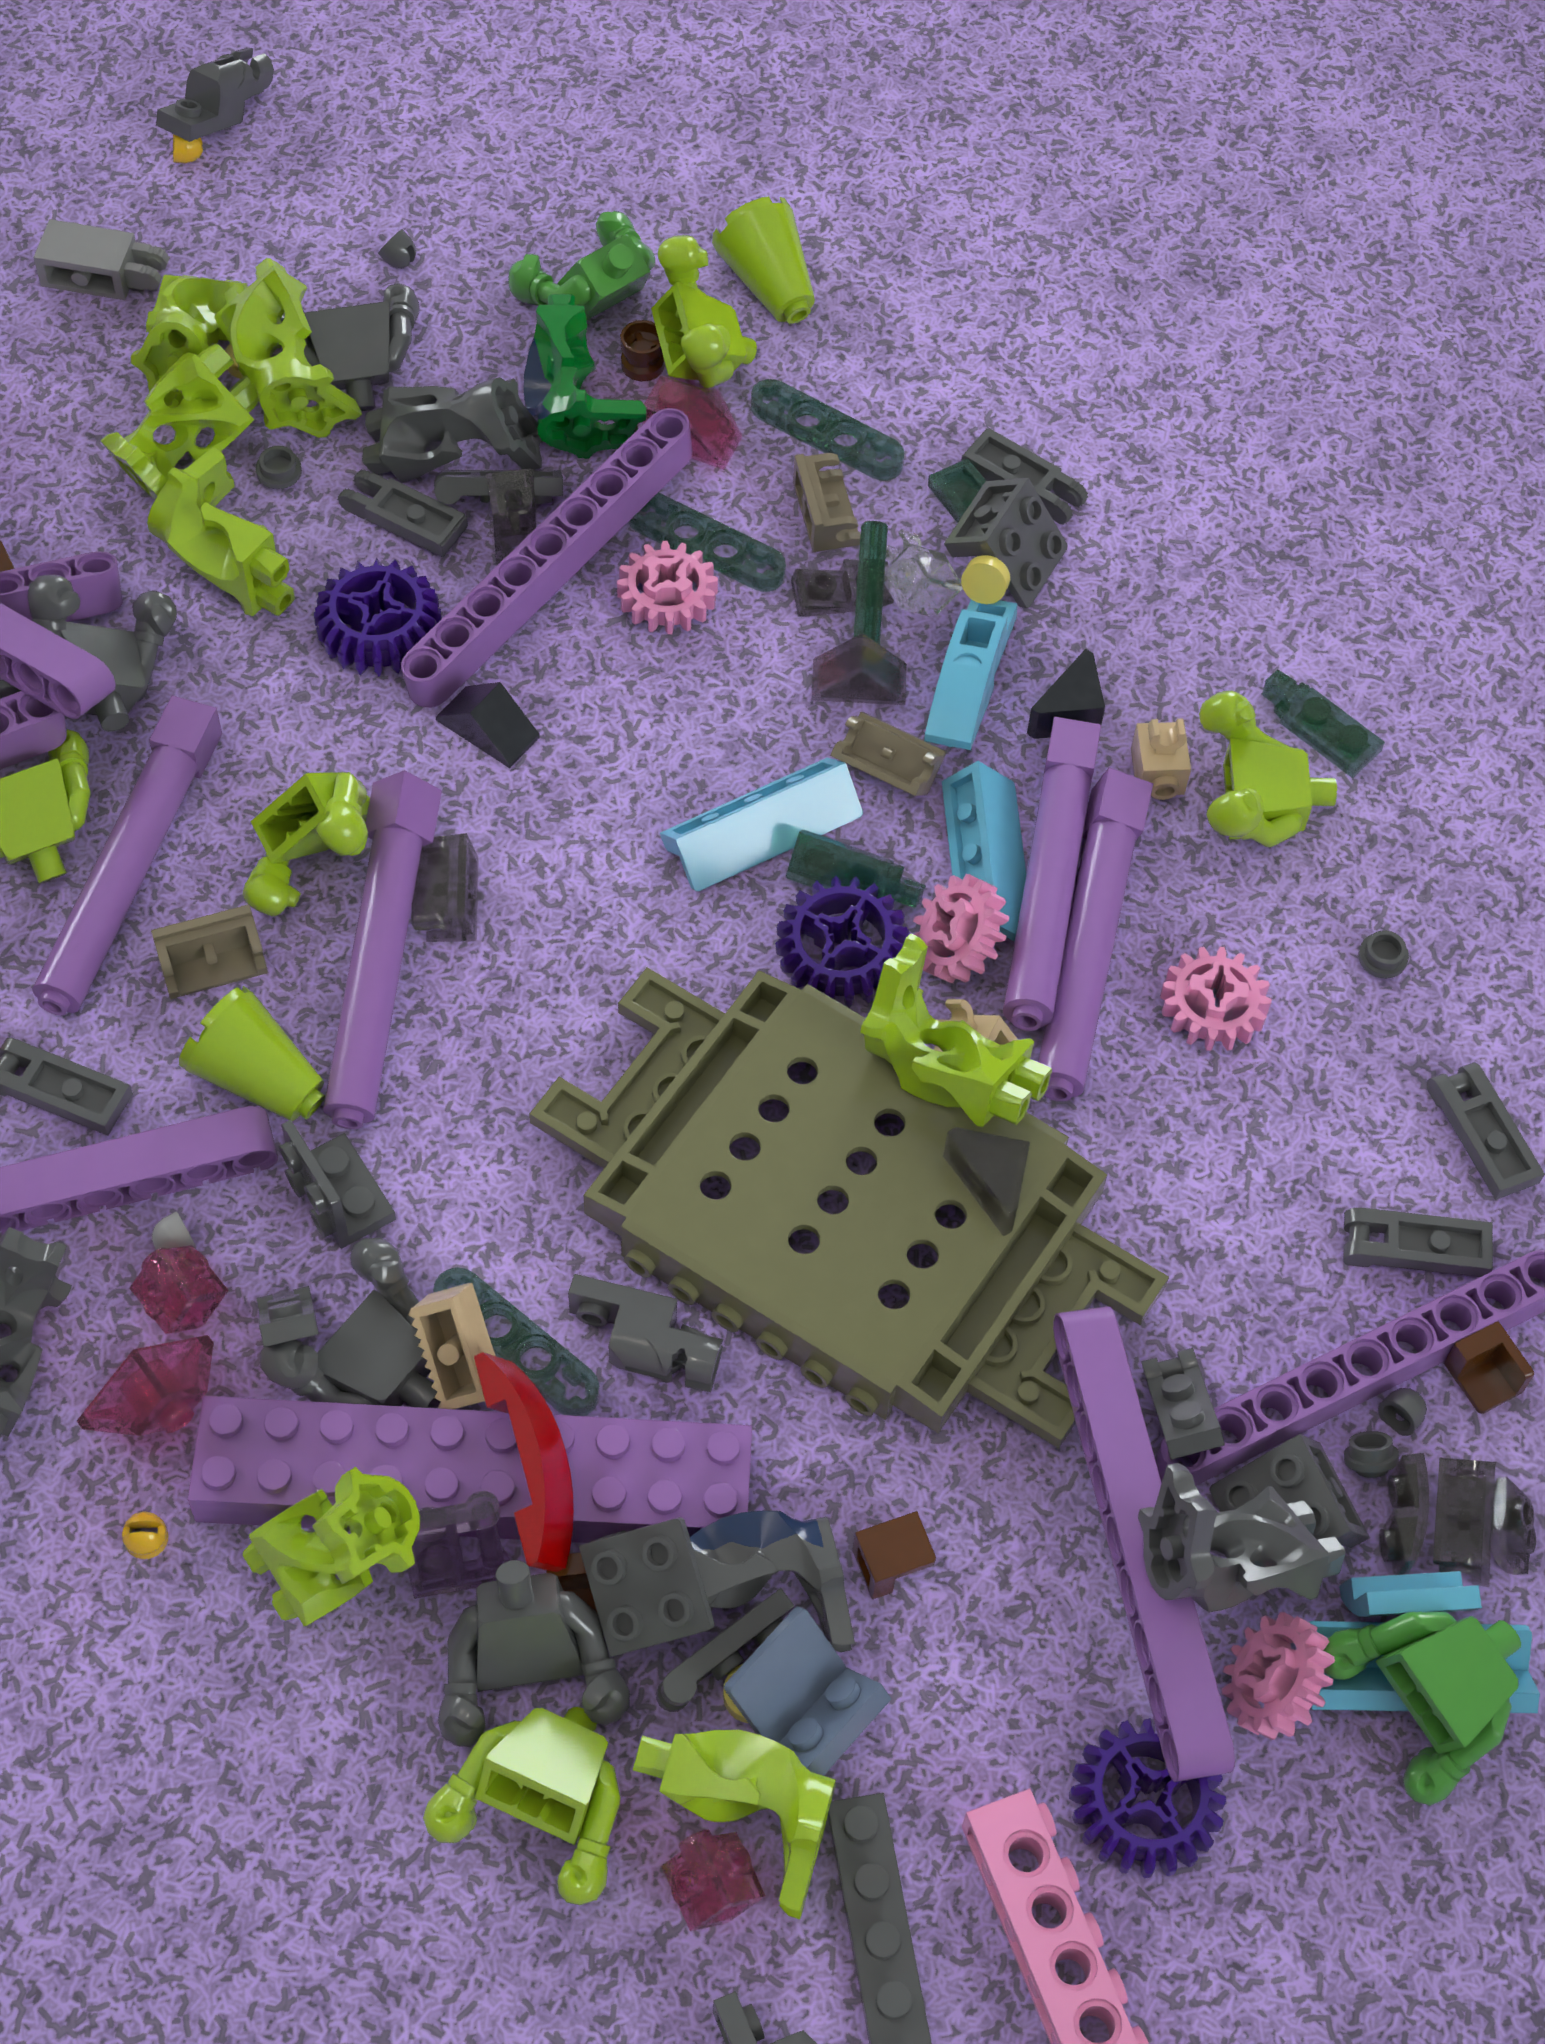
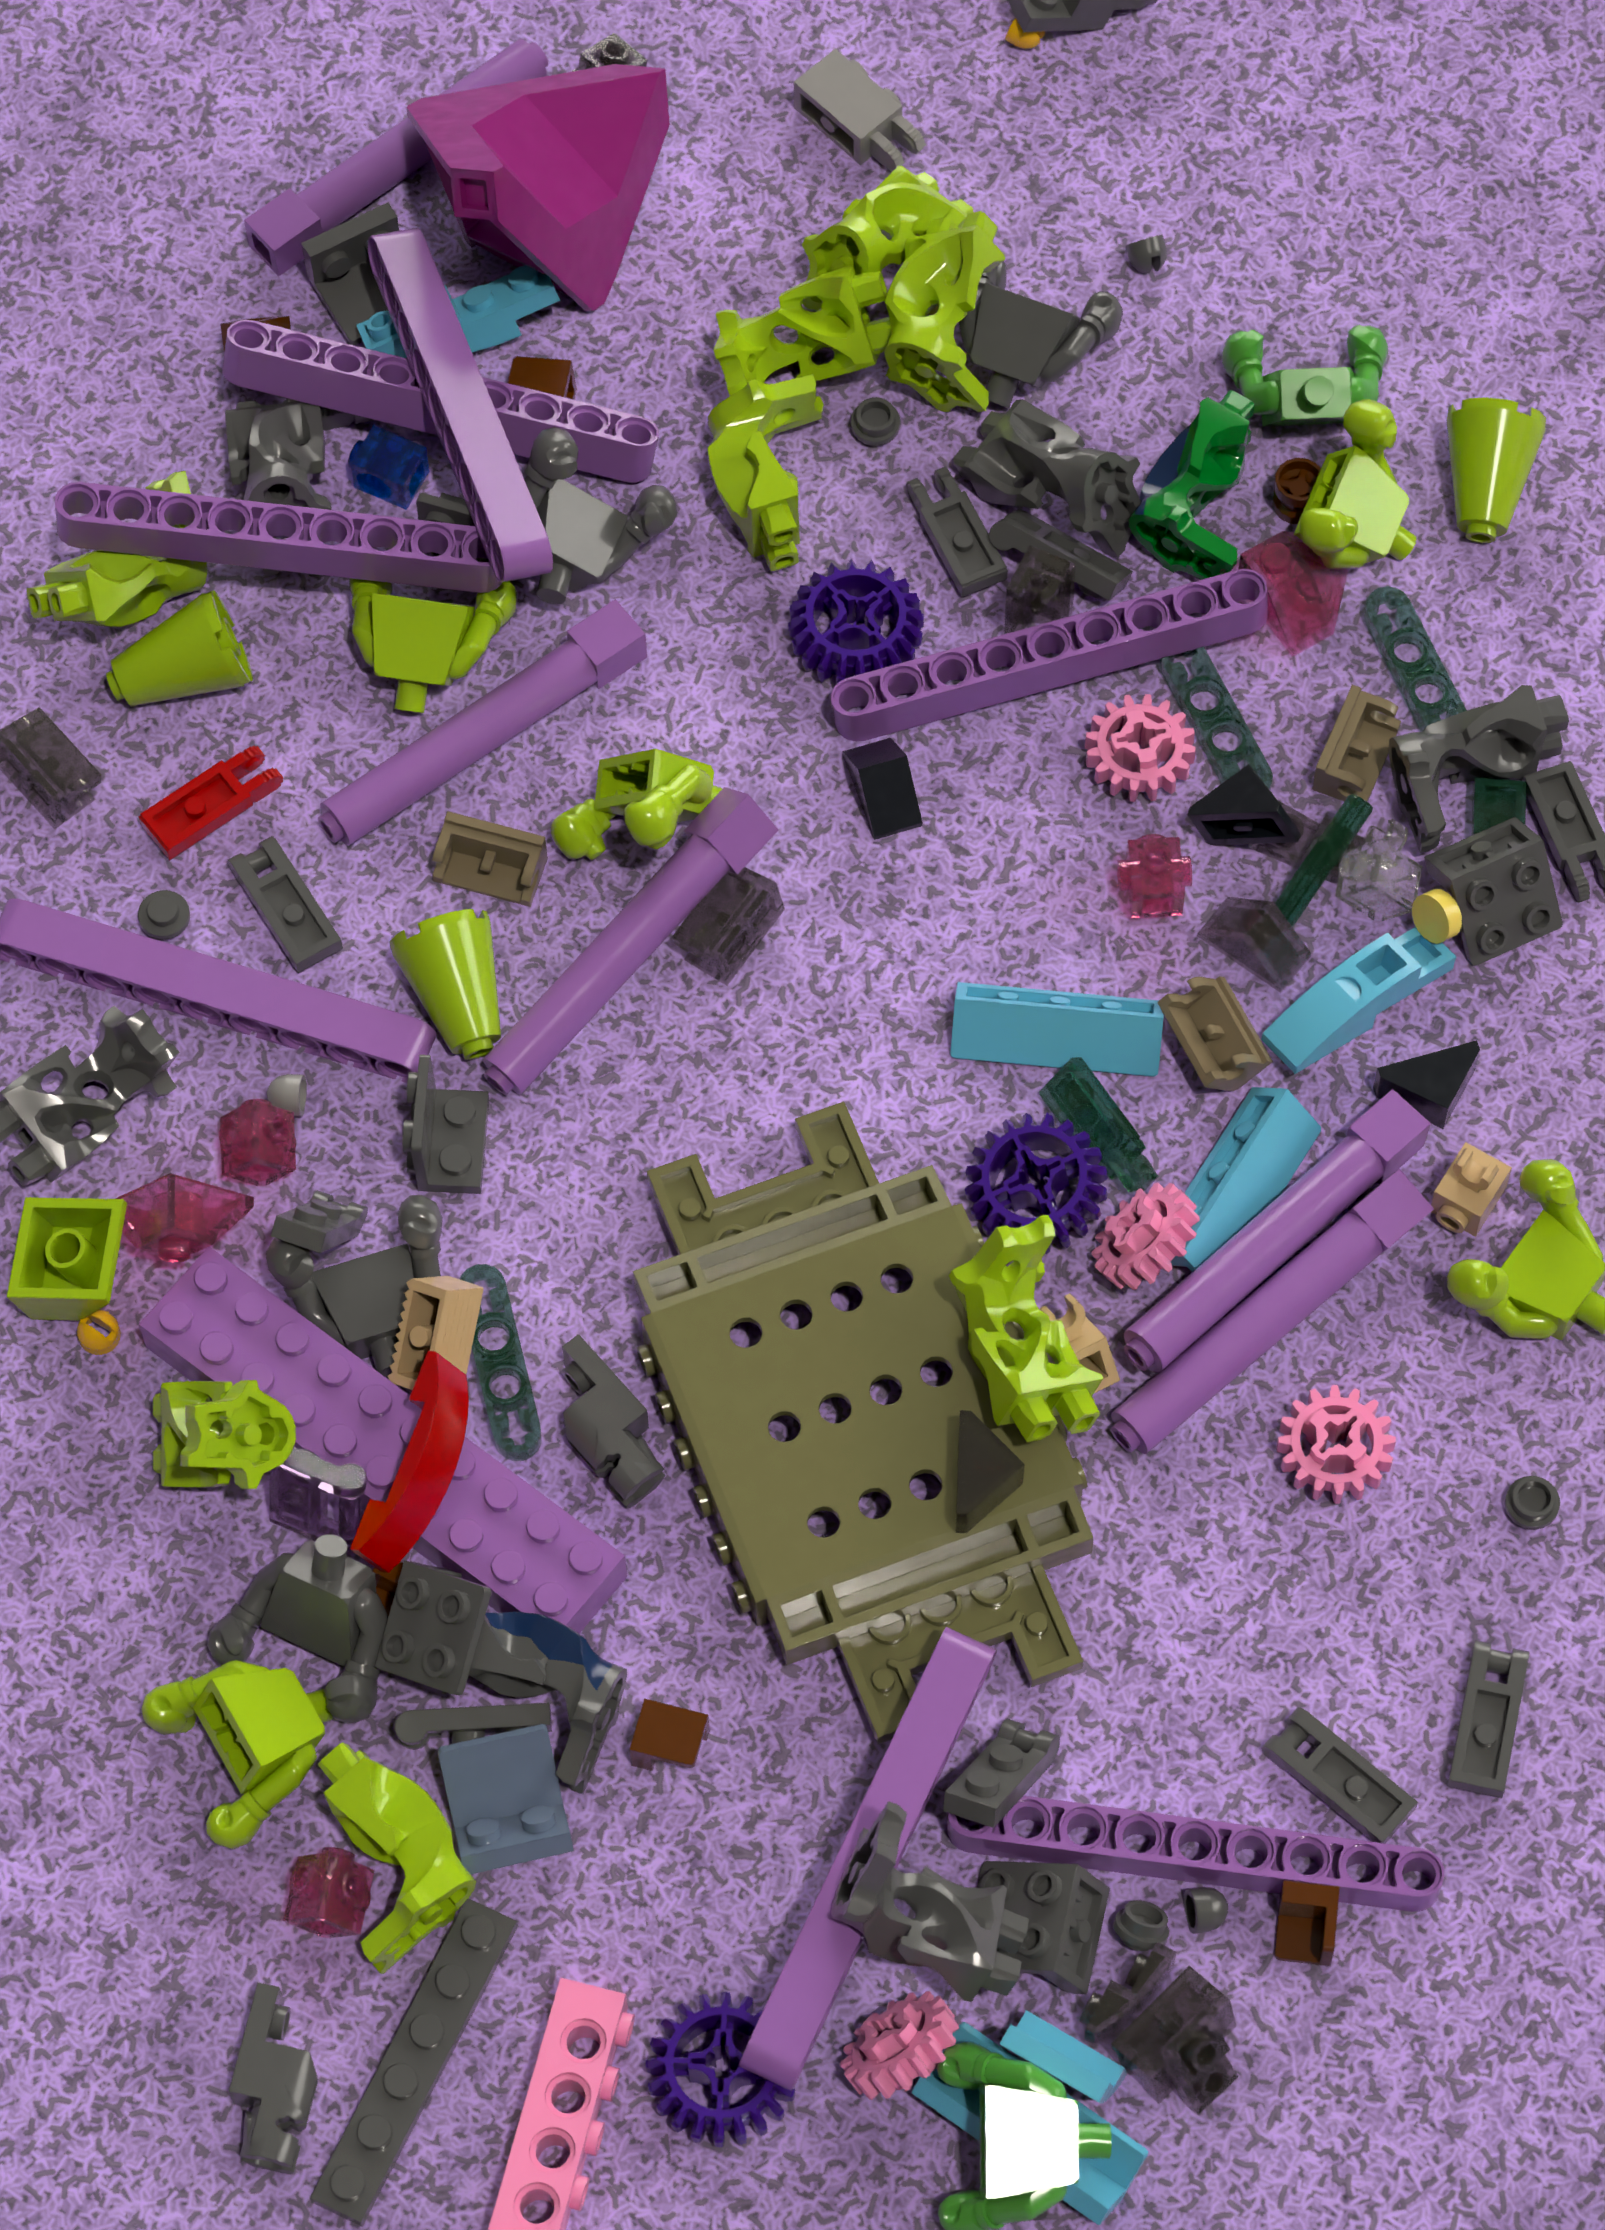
camera: 40 degrees right, 5 degrees up
(80, 1482) = (66, 1256): none -> lime slope
(754, 669) = (1155, 876): none -> clear pink brick
(787, 585) = (1242, 813): none -> black slope
(915, 447) = (1482, 742): none -> dark grey hips

